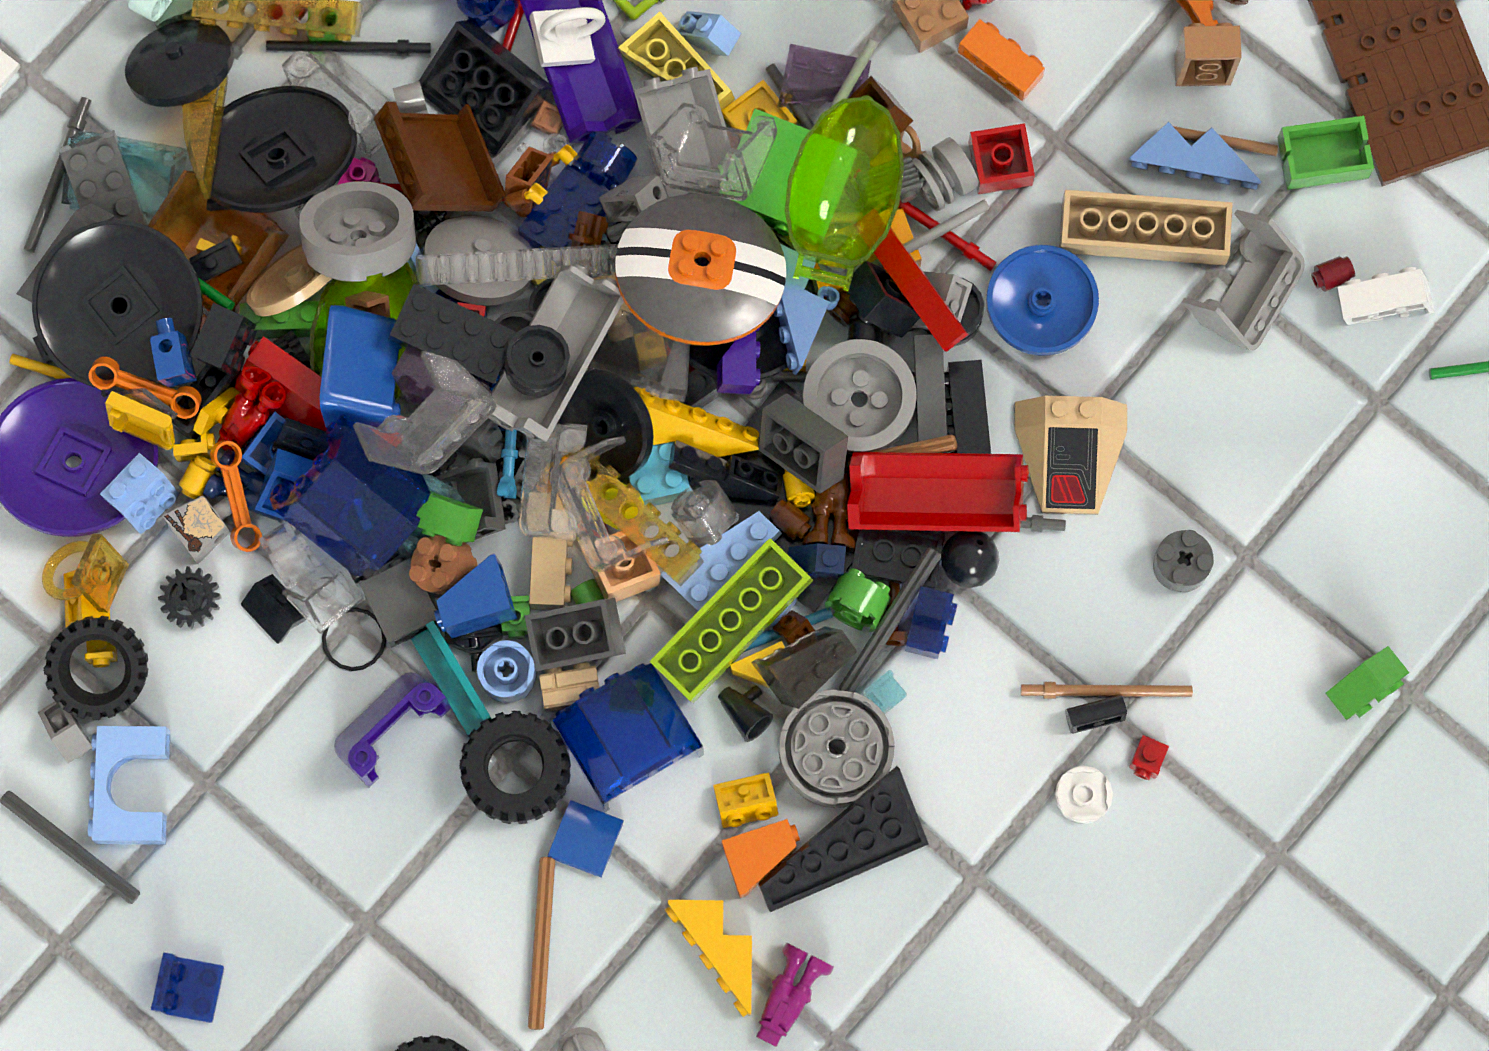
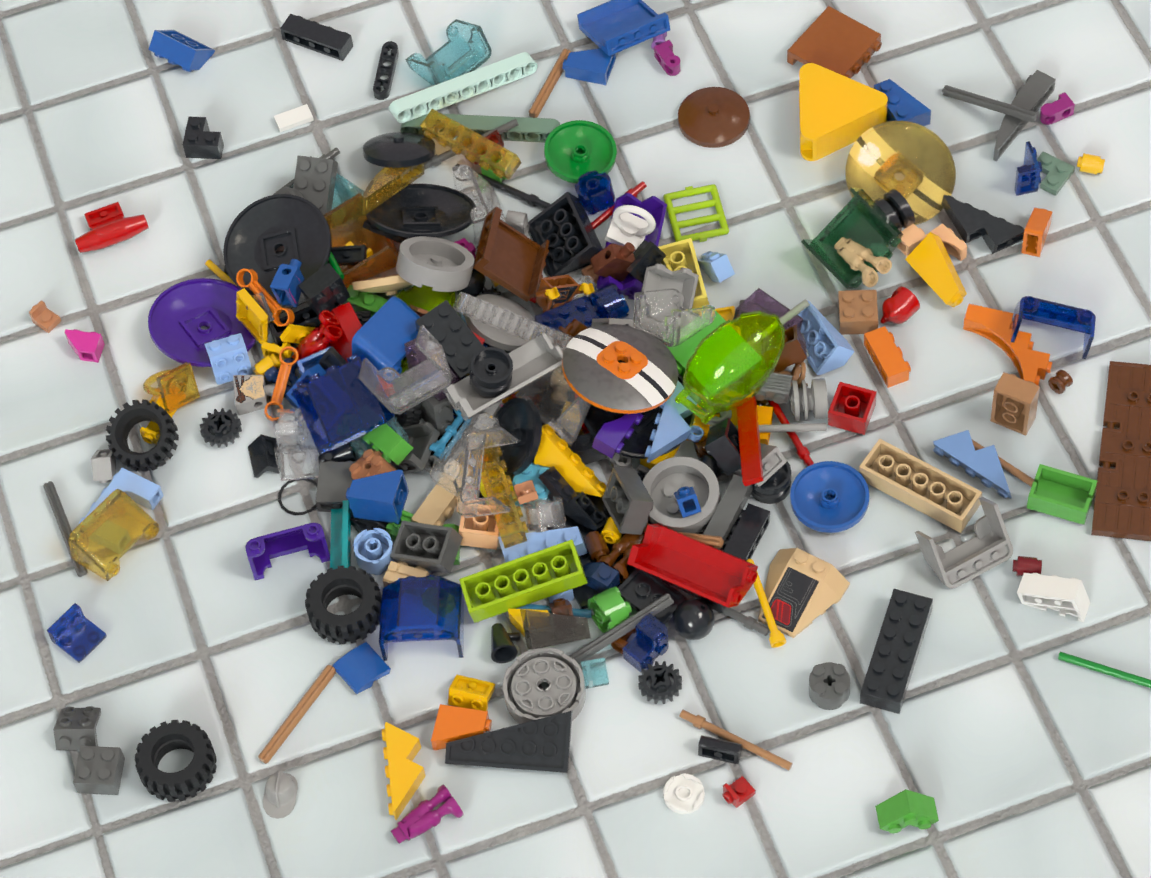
camera: 35 degrees right, 20 degrees down
(148, 830) = (110, 533): none -> clear yellow windscreen
(586, 88) = (614, 261): none -> copper torso
(613, 75) = (645, 256): none -> black bracket
(666, 498) = (525, 492): none -> nougat bracket
(879, 405) = (687, 501): none -> blue brick
(914, 79) = (824, 343): none -> light blue wedge
(962, 663) = (660, 682): none -> black gear
(1080, 527) = (776, 637): none -> yellow piece
(1238, 471) = (896, 651): none -> black brick

